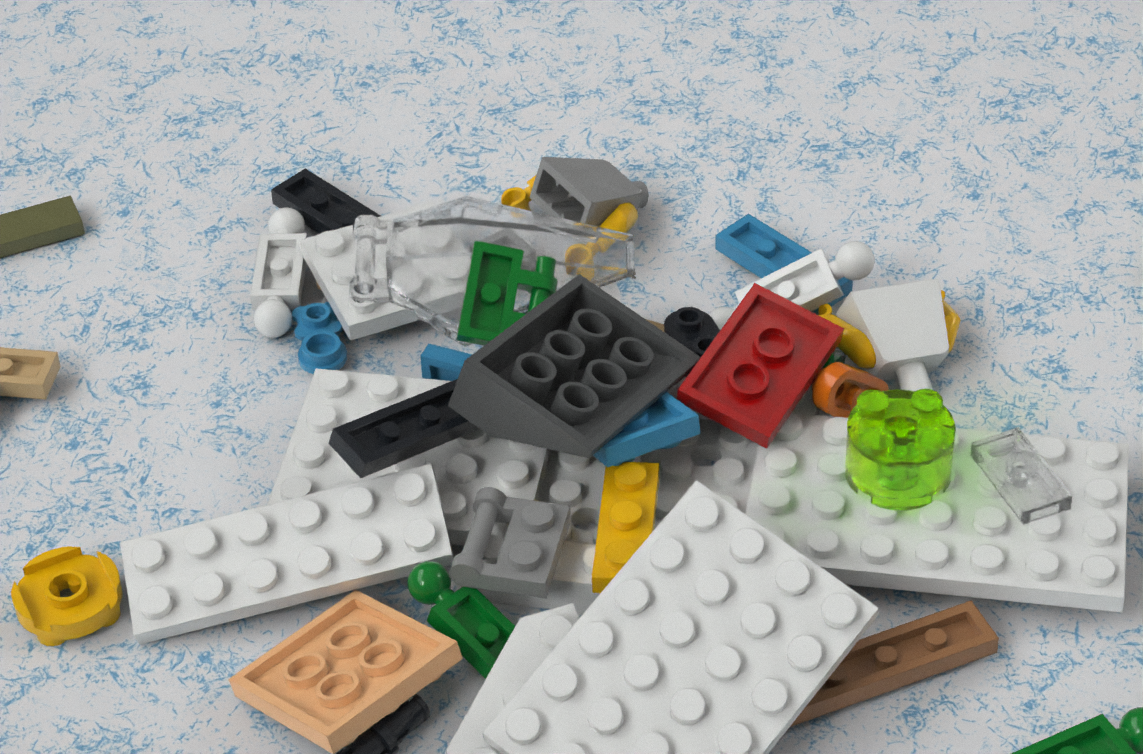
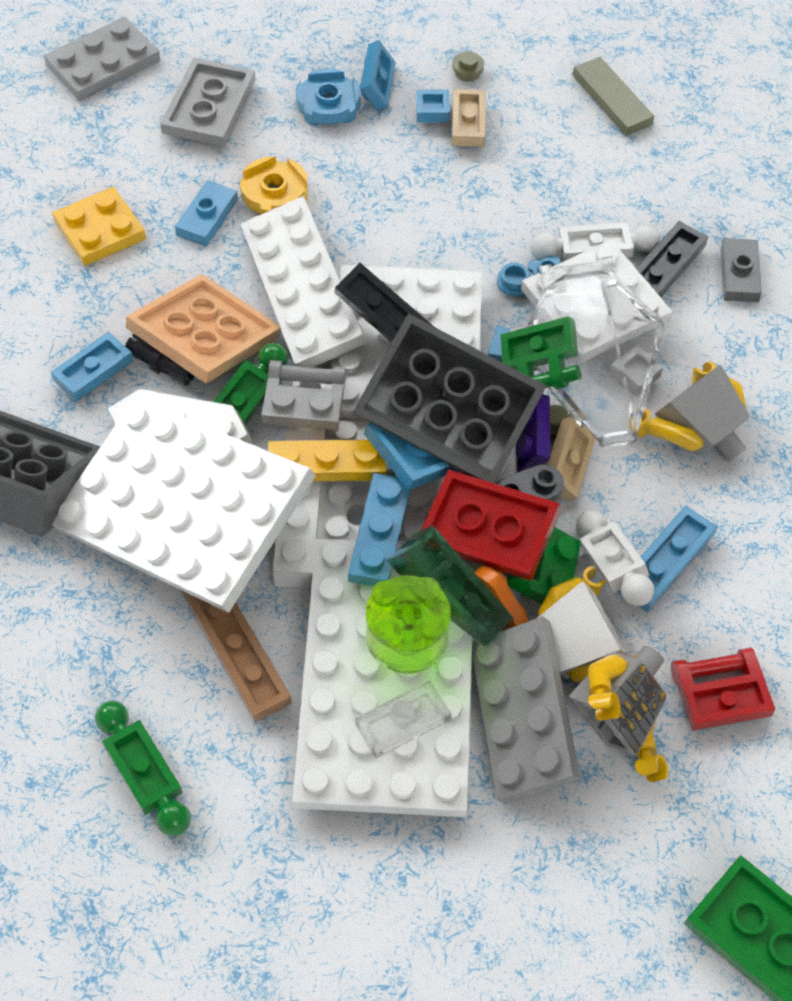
camera: 80 degrees right, 15 degrees up
(90, 682) = (206, 213): none -> dark azure plate
(355, 158) = (741, 270): none -> plate
(746, 480) = (379, 530): none -> dark azure plate
(815, 414) = (470, 601): none -> clear green slope
(971, 236) = (725, 699): none -> red plate
(999, 295) = (622, 705): none -> torso
(1006, 380) = (524, 711): none -> light grey plate

